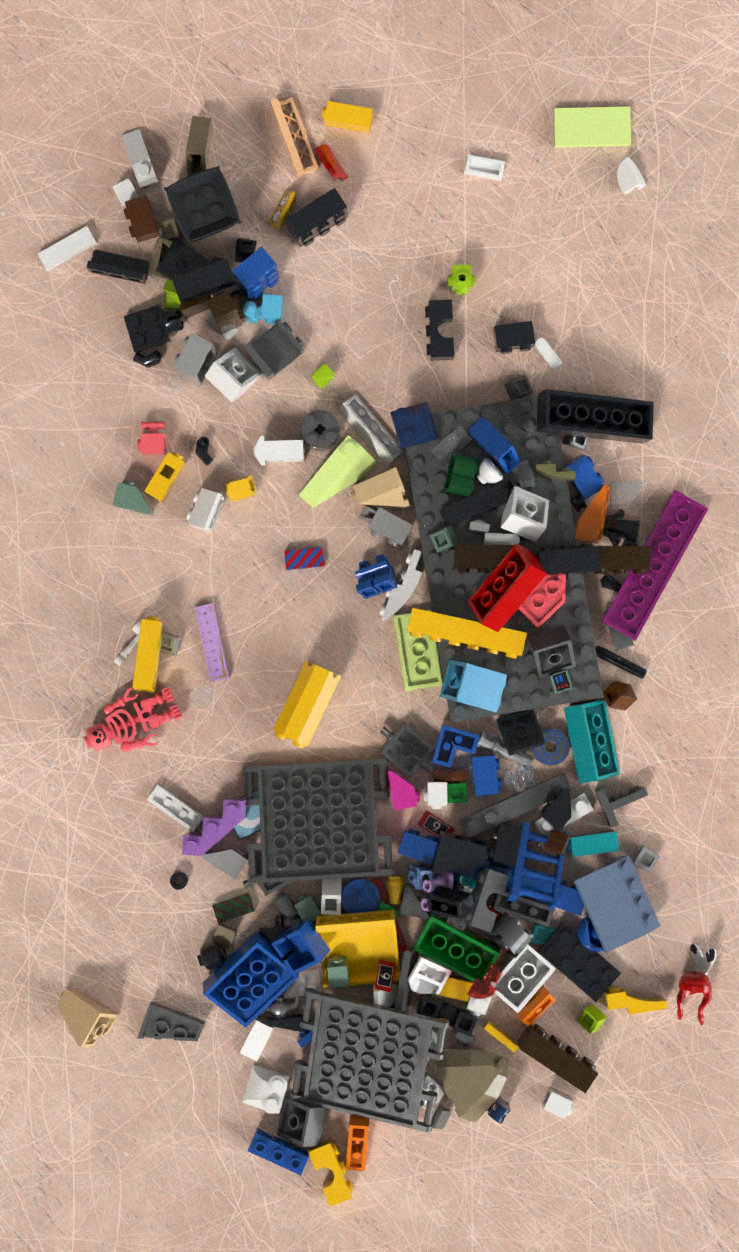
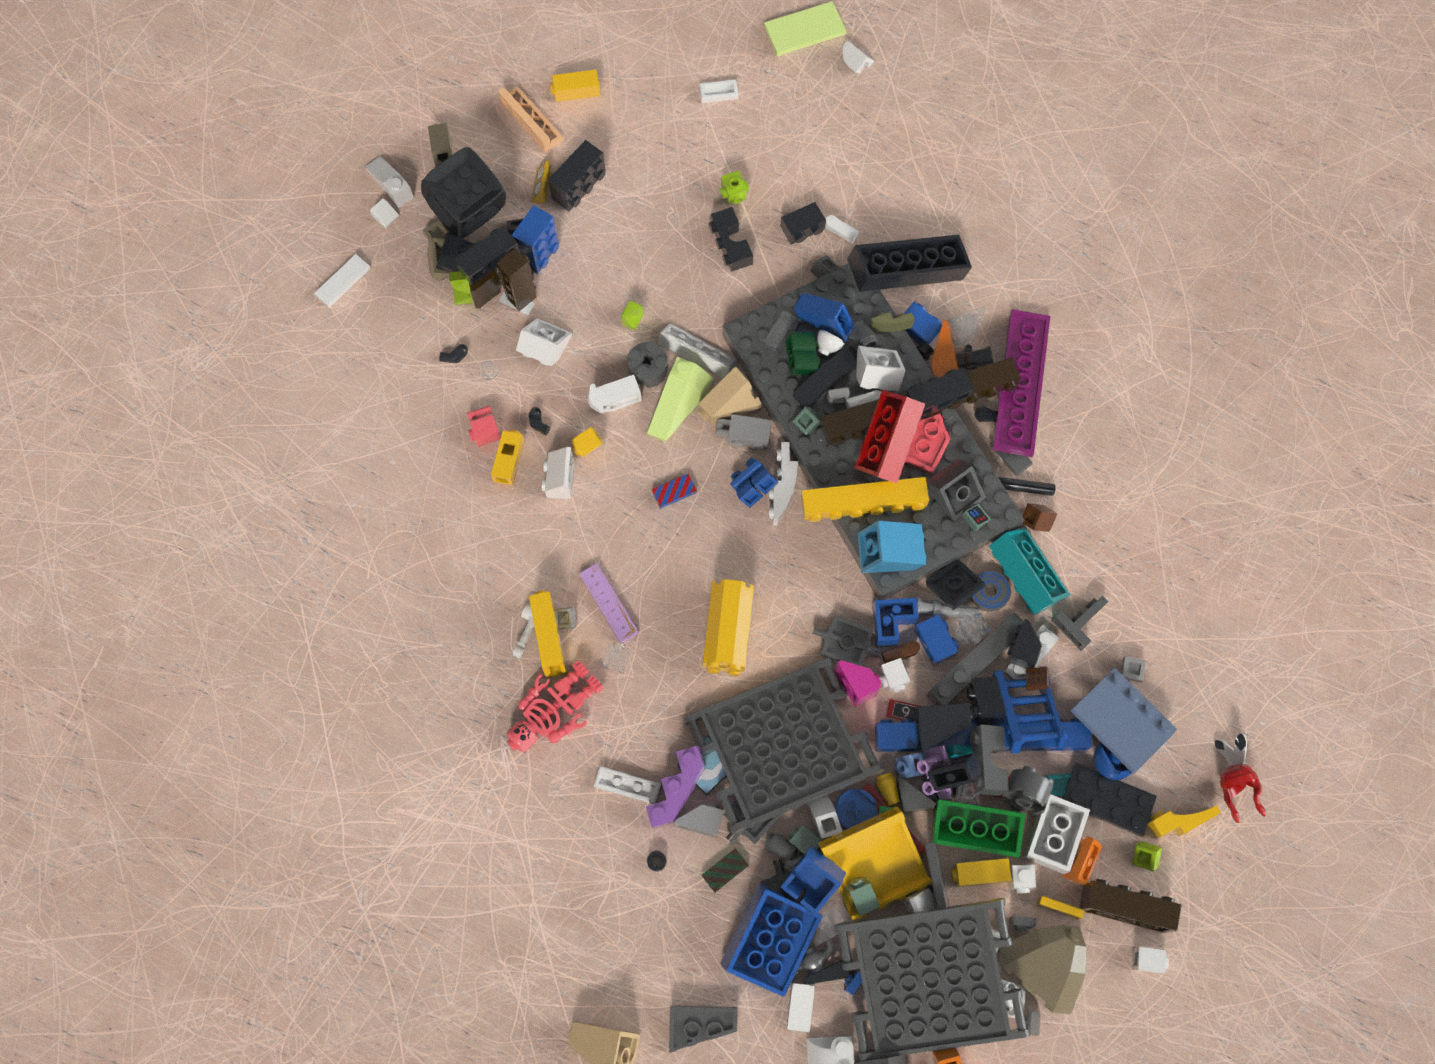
camera: 20 degrees left, 15 degrees down
(118, 266) = (398, 281): black panel -> none
(131, 498) = (480, 489): sand green slope -> none
(141, 219) = (407, 230): reddish brown brick -> none
(152, 327) = (449, 323): black plate -> none
(196, 353) = (501, 333): light grey piece -> none
(212, 956) = (720, 930): black head -> none
(224, 935) = (725, 904): dark tan slope -> none
(269, 311) = (559, 274): medium azure brick -> none
(275, 350) = (577, 307): dark grey panel -> none
(330, 162) = (570, 127): red slope -> none
(385, 976) = (914, 881): sticker -> none
(414, 425) = (738, 325): dark blue slope -> none
(417, 656) = (821, 546): yellowish green tile -> none
(428, 976) = (960, 866): white slope -> none
(457, 792) = (915, 667): green plate -> none
(459, 1018) = (1016, 902): black arch -> none
(484, 988) = (1024, 855): clear red brick -> none
(499, 1110) = (1091, 989): dark blue leg -> none
(523, 908) = (1043, 759): dark grey brick -> none
(575, 442) = (898, 296): dark grey slope -> none
(593, 843) = (1074, 671): teal brick -> none

